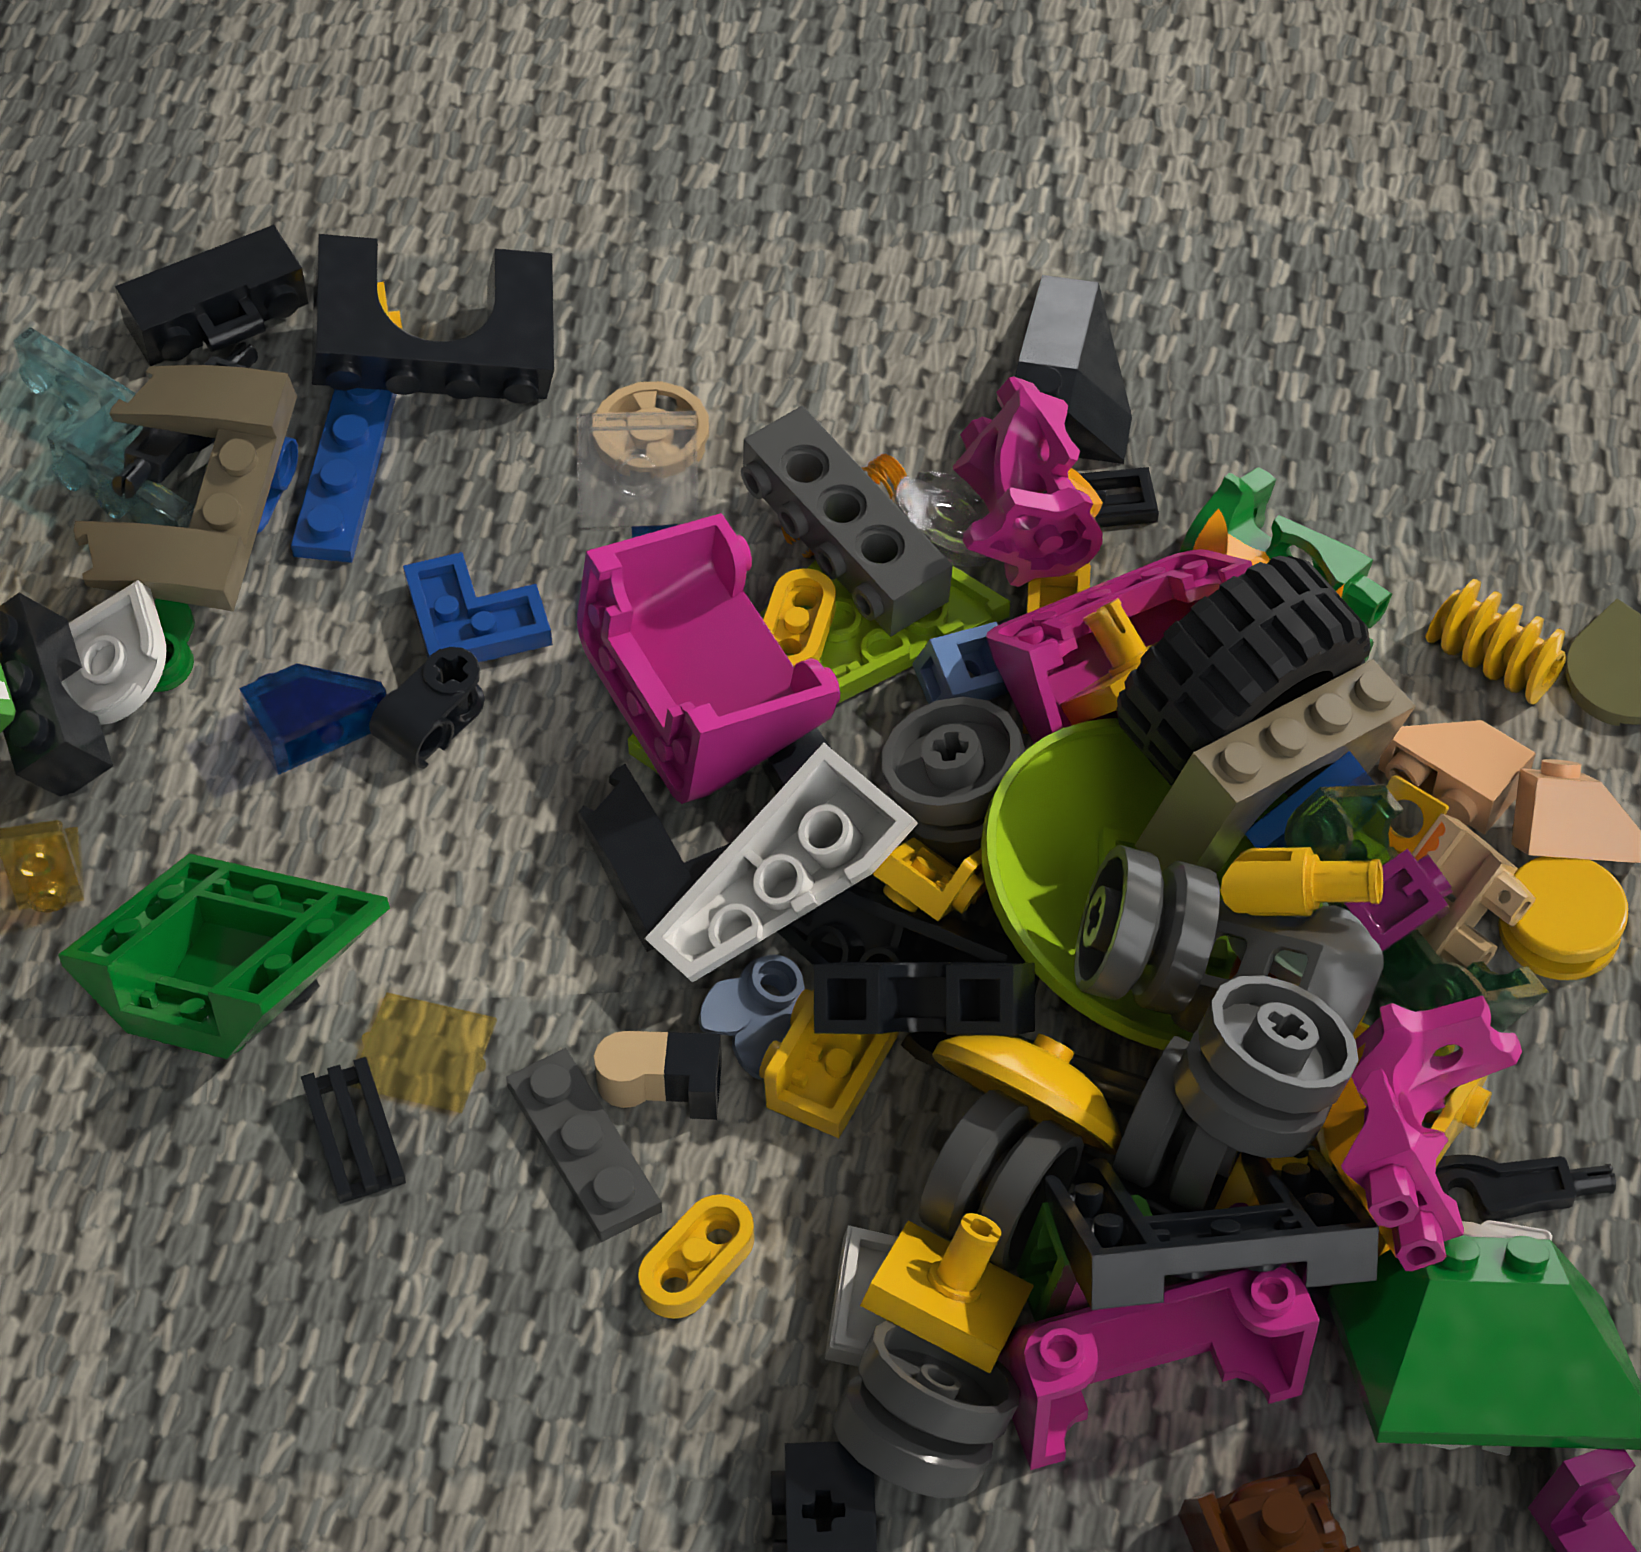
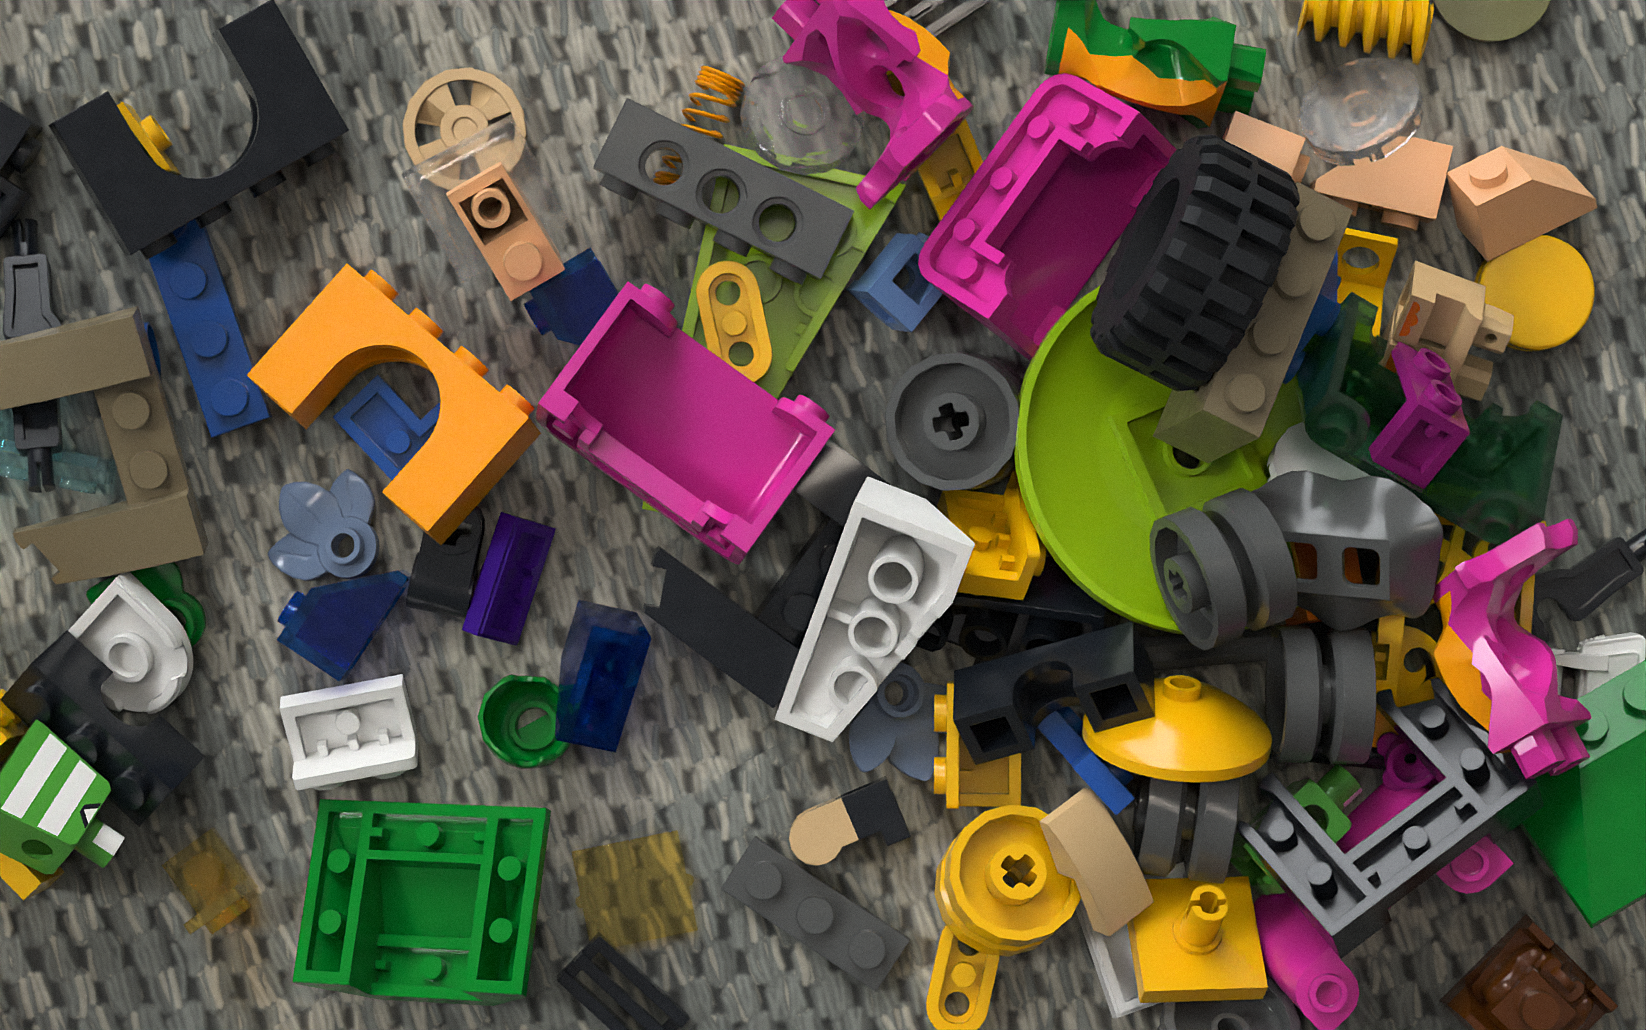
camera: 30 degrees left, 35 degrees up
(254, 797) = (350, 733): none -> white bracket
(344, 646) = (320, 522): none -> sand blue plate
(408, 840) = (499, 716): none -> green hair
(473, 746) = (508, 579): none -> dark purple plate
(475, 510) = (360, 327): none -> light orange arch
(505, 839) = (599, 674): none -> clear blue slope
(639, 466) = (506, 230): none -> light nougat slope
(789, 1168) = (981, 905): none -> yellow wheel
(890, 1158) = (1096, 855): none -> tan slope
(925, 1095) = (1106, 780): none -> blue plate
(1123, 650) = (1075, 249): yellow tile -> none
(1265, 1066) = (1385, 673): dark grey wheel -> none
(1296, 882) = (1338, 484): yellow arm -> none
(1465, 701) = (1361, 111): none -> clear tile

